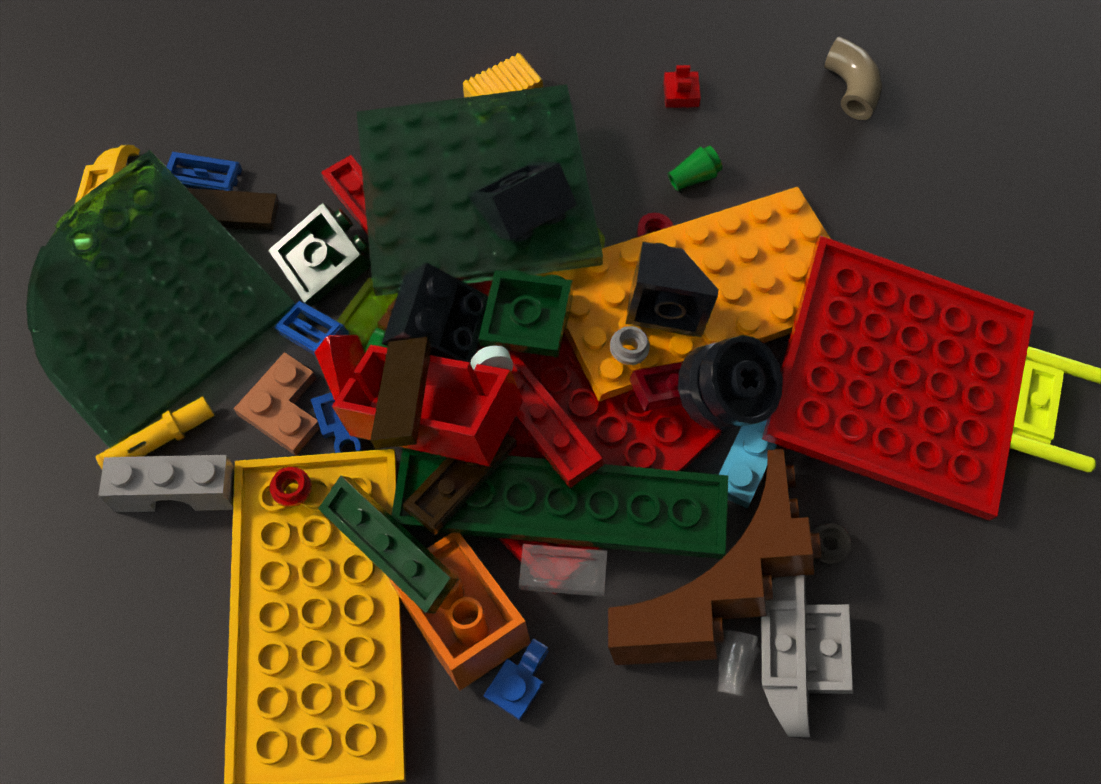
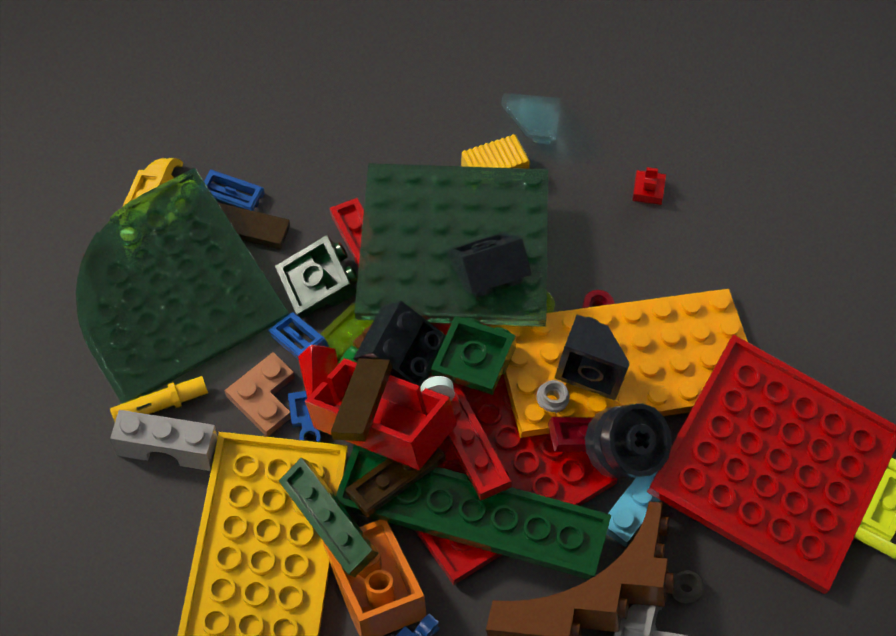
camera: 10 degrees right, 5 degrees down
(288, 476) = (259, 451): red plate -> none
(538, 30) = (534, 115): none -> clear light blue slope
(563, 570) = (463, 564): clear plate -> none
(696, 168) = (646, 258): green cone -> none
(860, 75) = (806, 203): dark tan cylinder -> none

